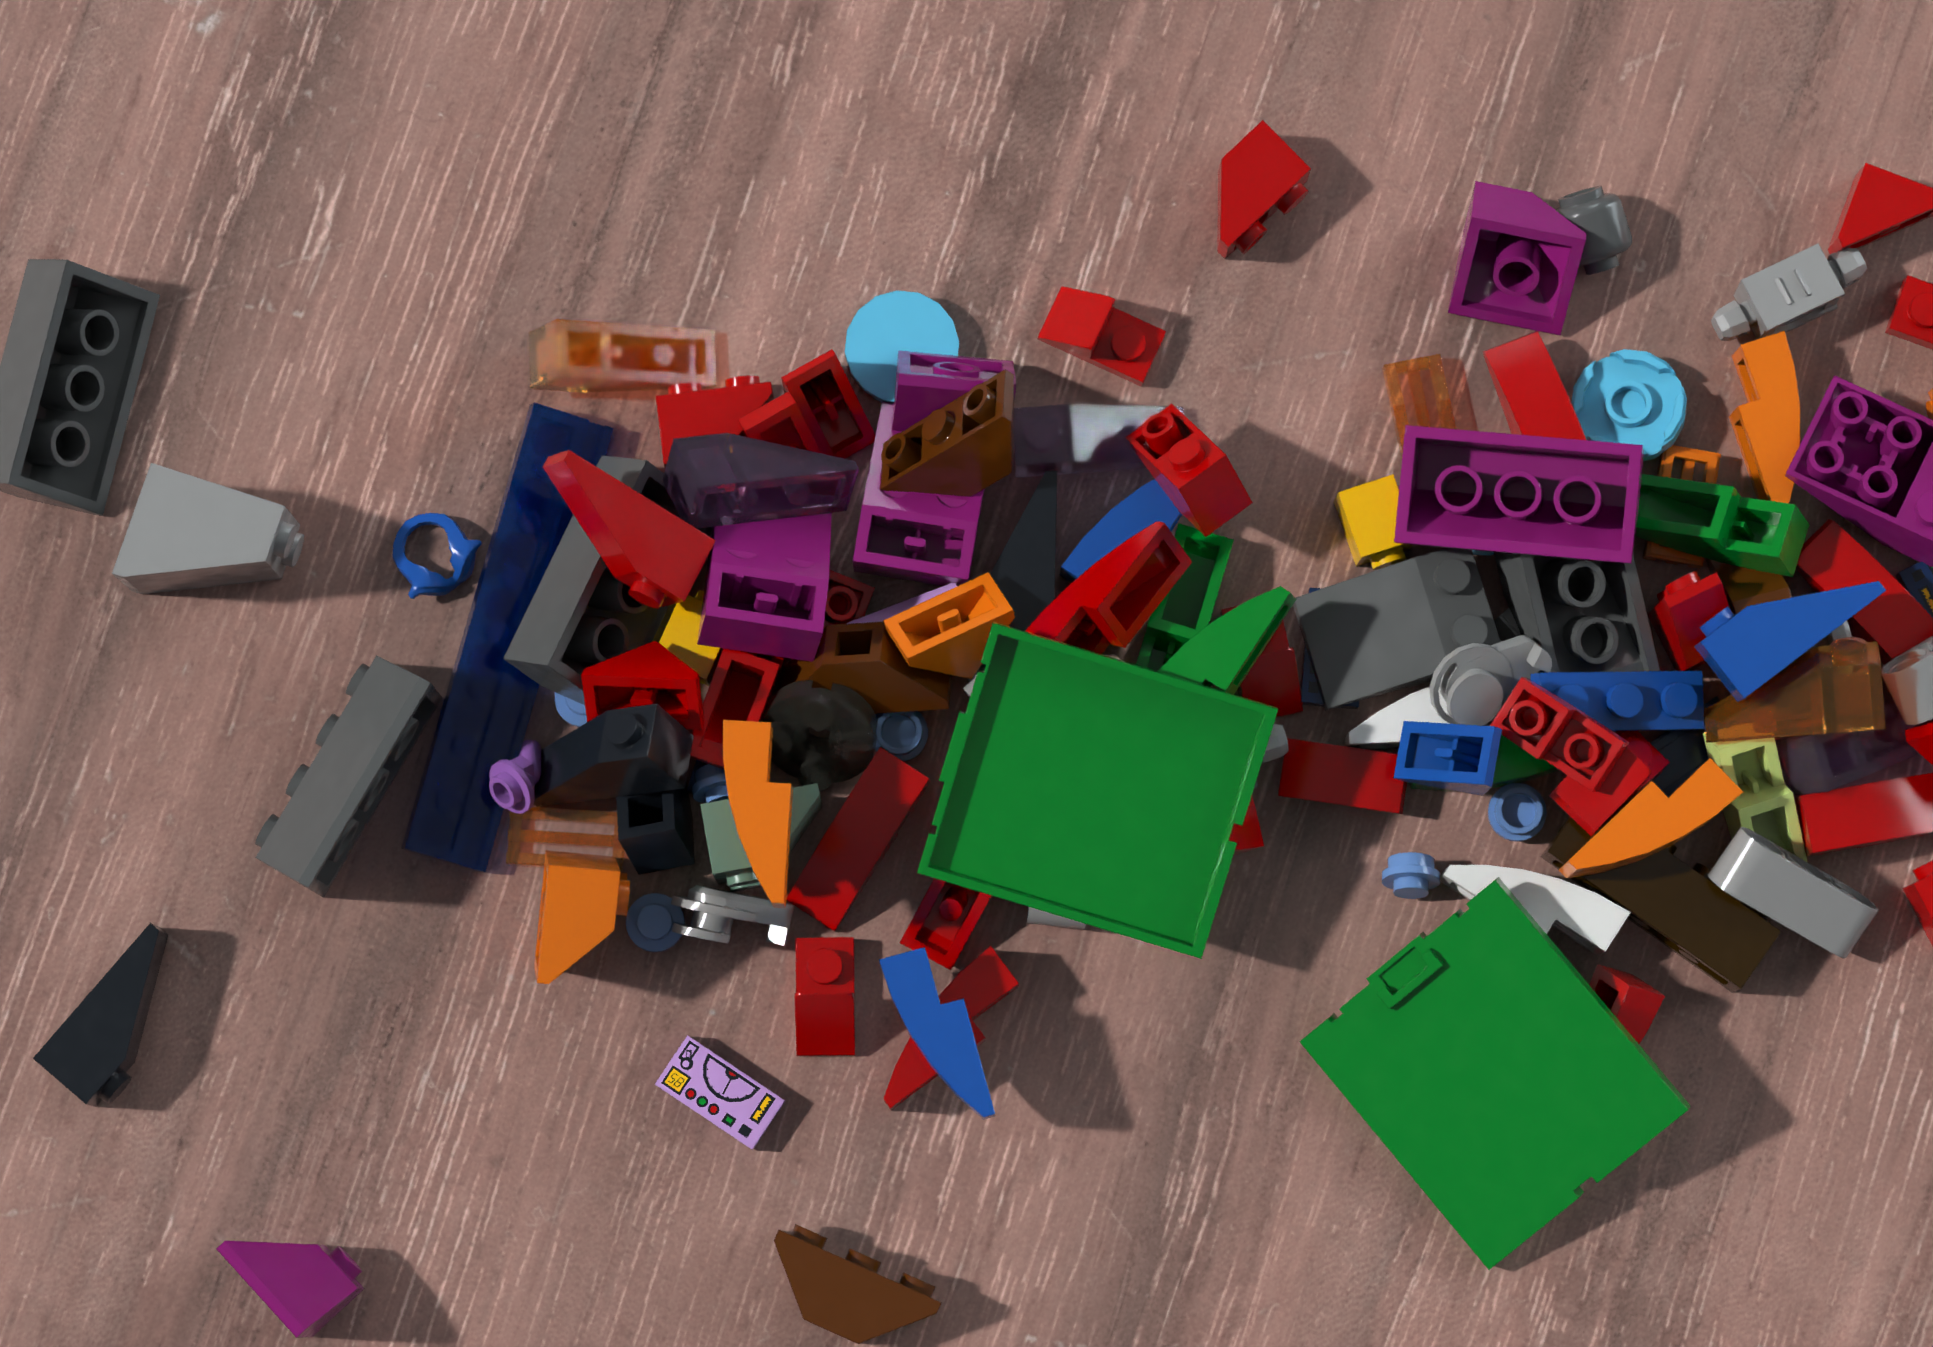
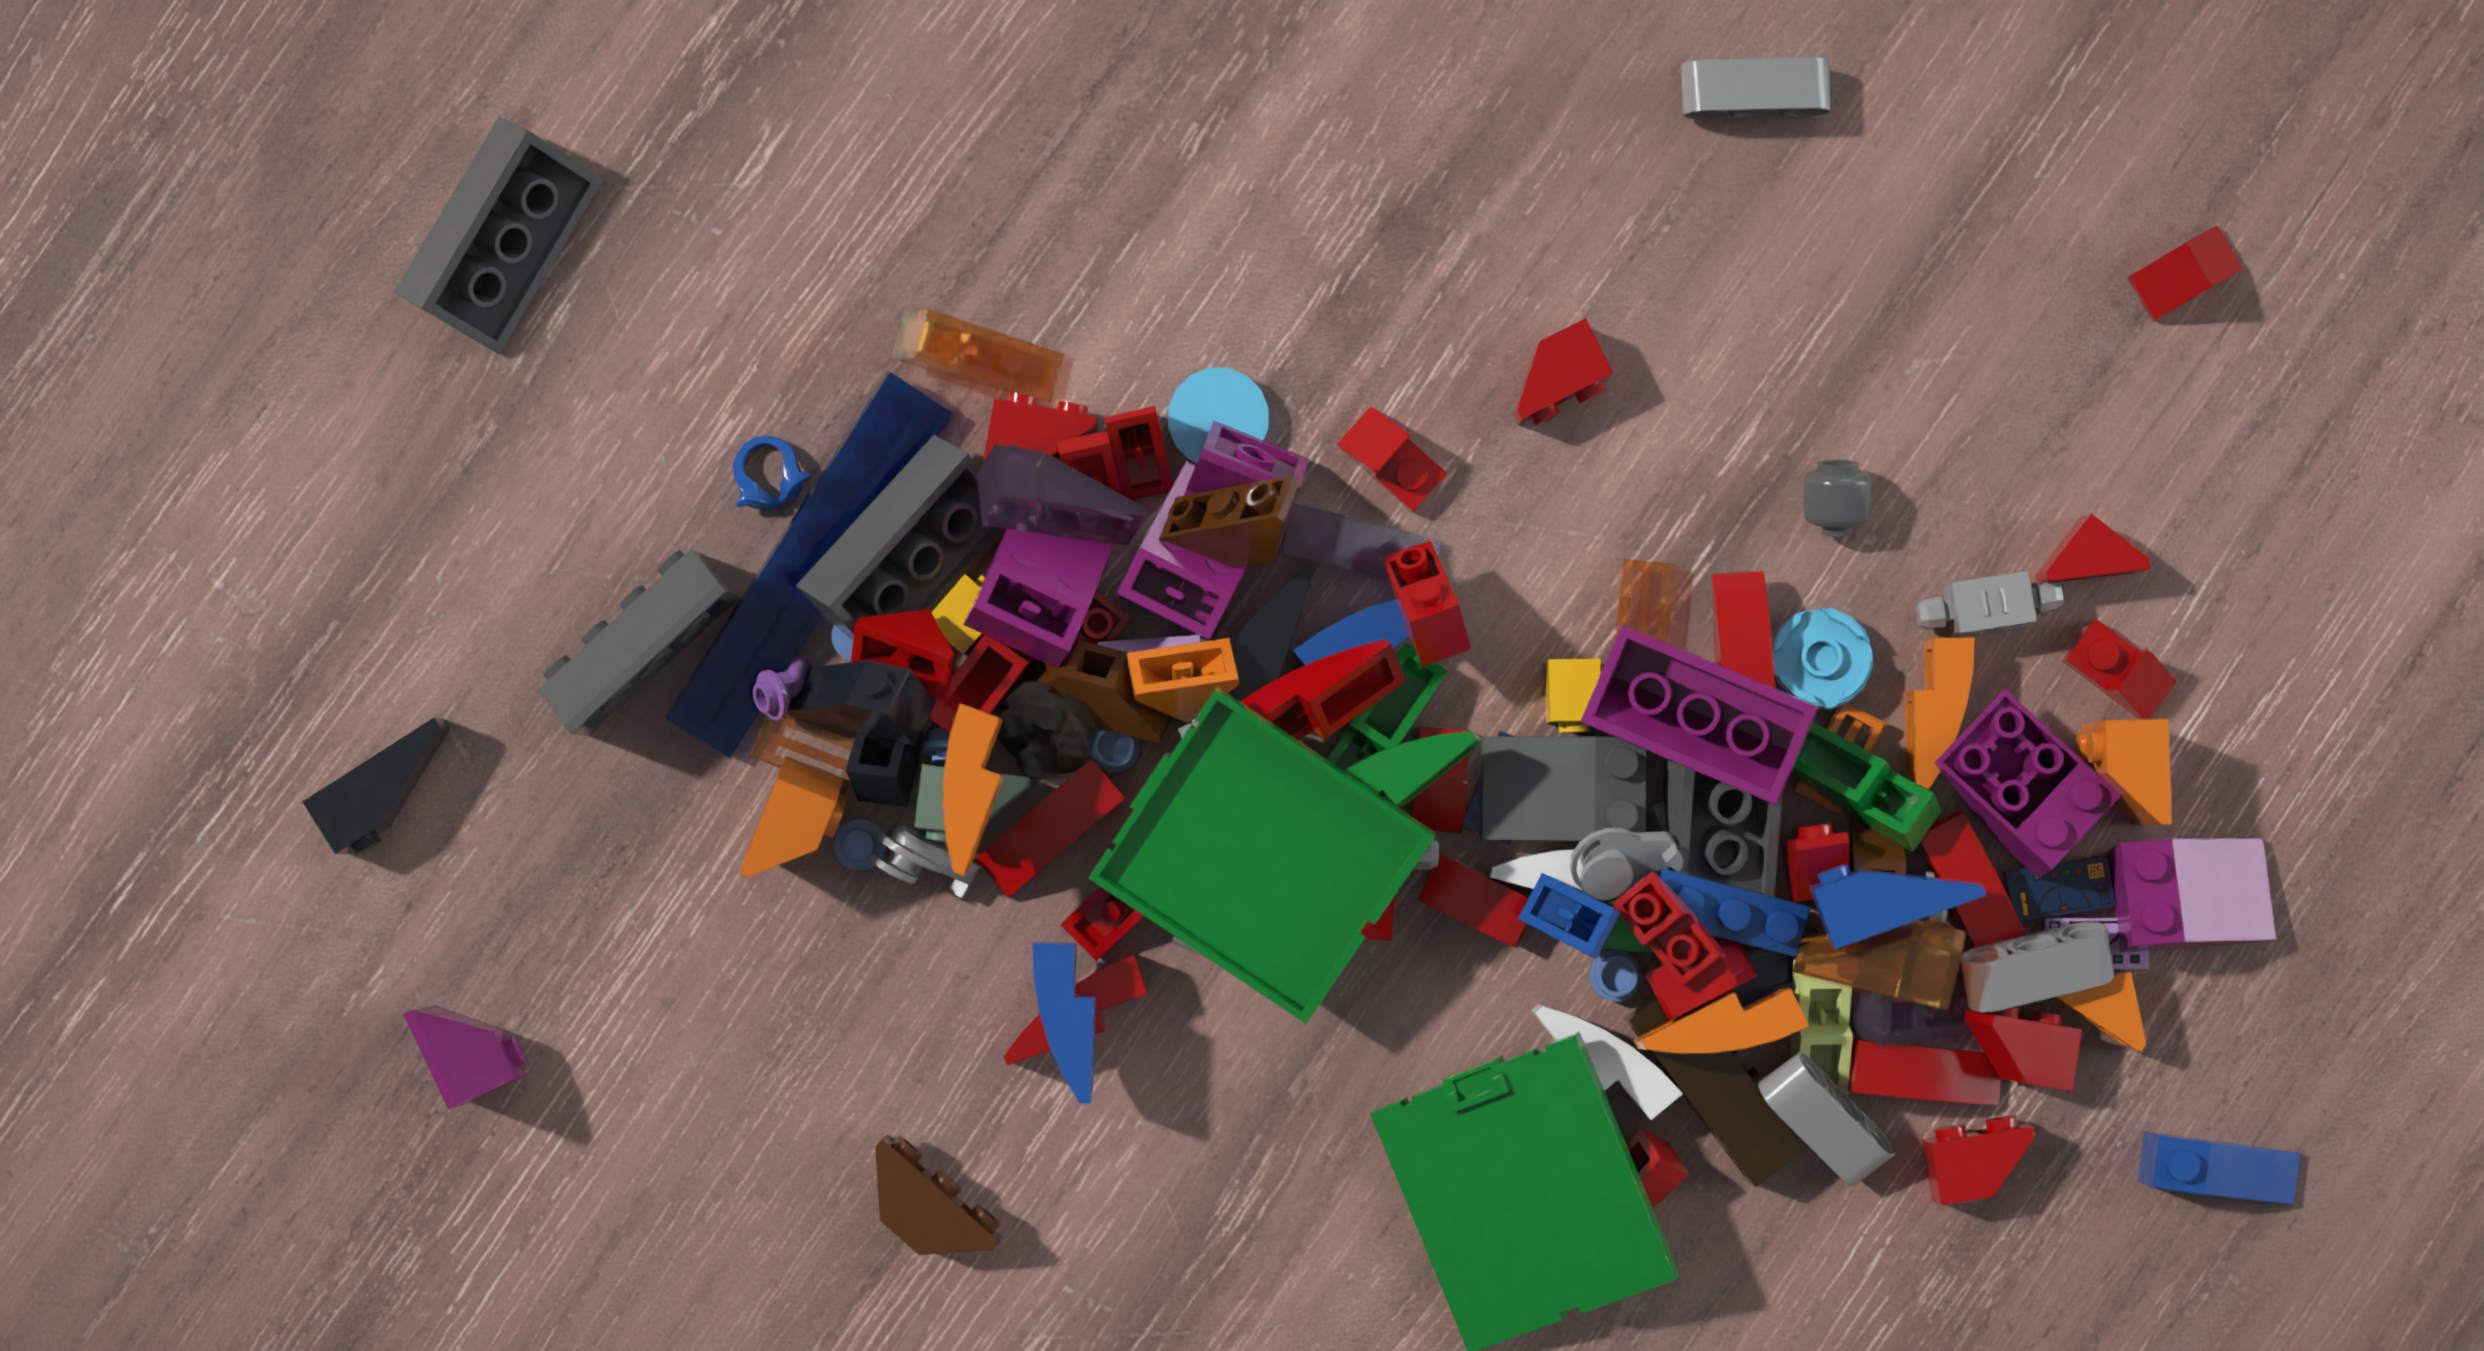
camera: 20 degrees right, 5 degrees up
(203, 536) = (574, 401): light grey slope -> none
(632, 534) = (934, 517): red slope -> none
(720, 1092) = (870, 1004): lavender tile -> none
(825, 996) = (983, 950): red slope -> none
(1411, 875) = (1508, 1002): medium blue plate -> none
(1516, 260) = (1764, 504): magenta slope -> none

